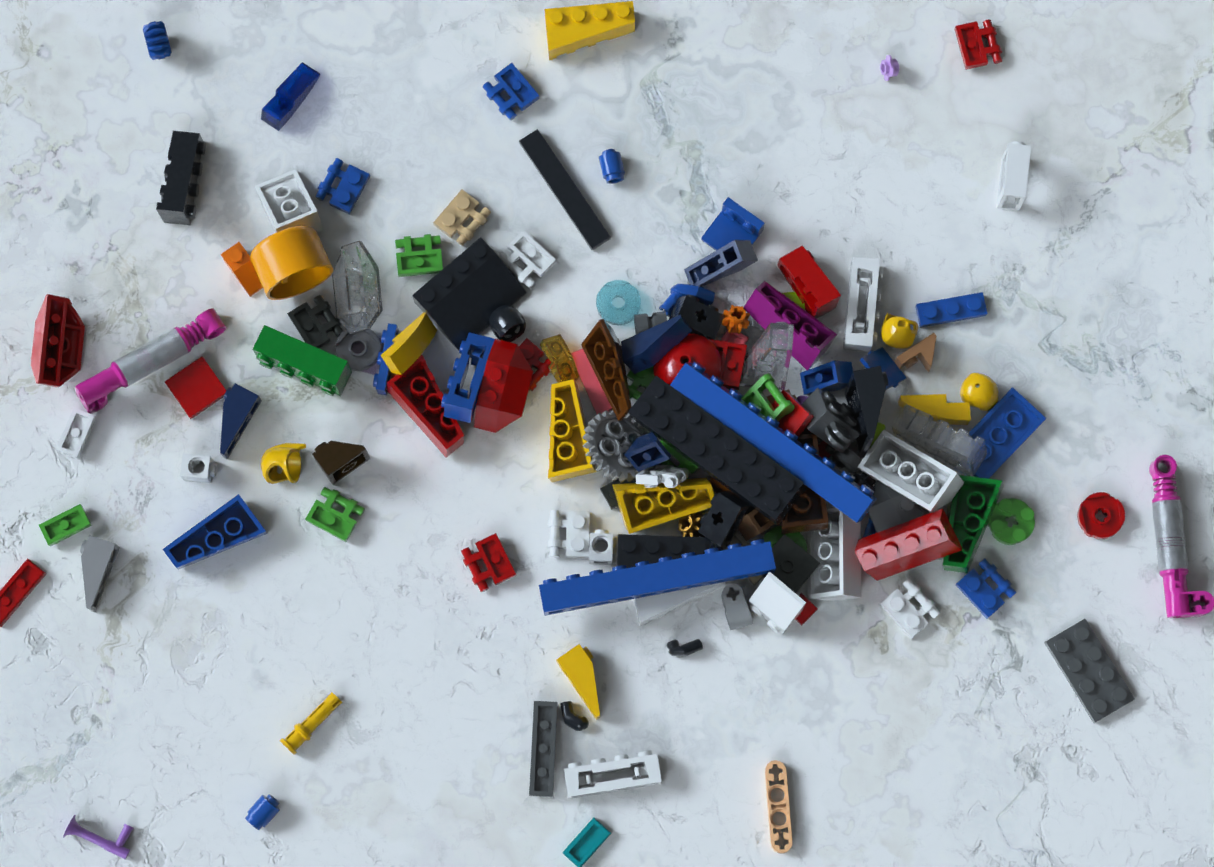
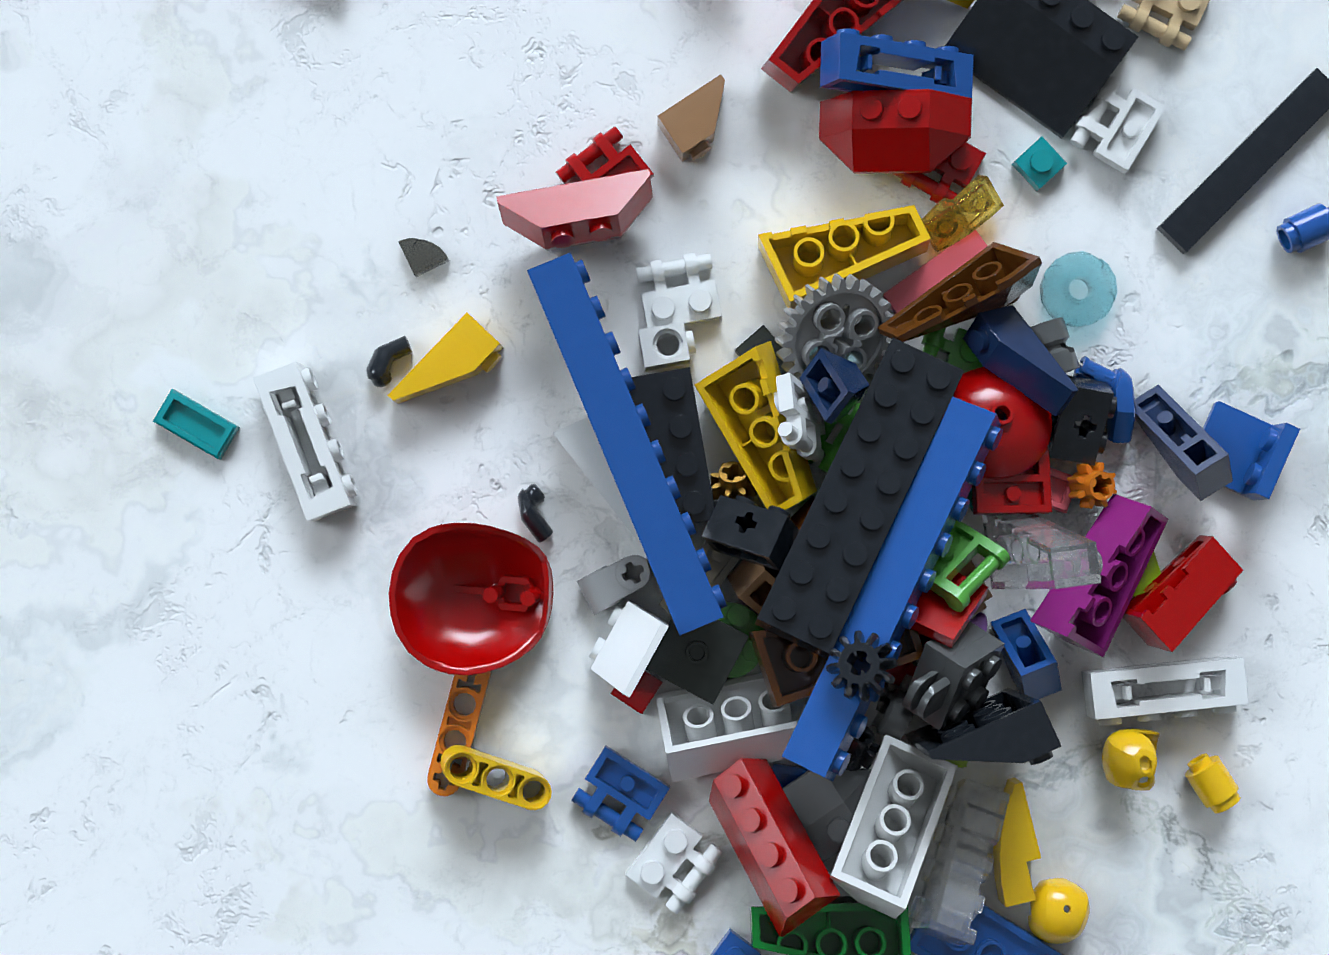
camera: 75 degrees right, 10 degrees up
(469, 502) = (693, 120): none -> medium nougat slope
(505, 322) = (1005, 112): black helmet -> none
(511, 580) = (577, 210): none -> wedge
(513, 683) = (422, 255): none -> clear smoke tile
(539, 308) = (1039, 163): none -> teal plate
(543, 749) = (326, 324): dark grey plate -> none
(728, 692) = (470, 597): none -> red piece
(774, 807) = (313, 715): light nougat beam -> none
(803, 715) = (456, 721): none -> orange beam
(818, 456) = (849, 676): none -> black gear
(842, 691) = (509, 790): none -> yellow beam
(857, 625) = (627, 784): none -> blue plate
(881, 358) = (1075, 739): blue piece -> none
(922, 289) = (1212, 783): none -> yellow brick
(923, 351) = (1106, 804): medium nougat slope -> none
(951, 309) = (1187, 837): blue plate -> none

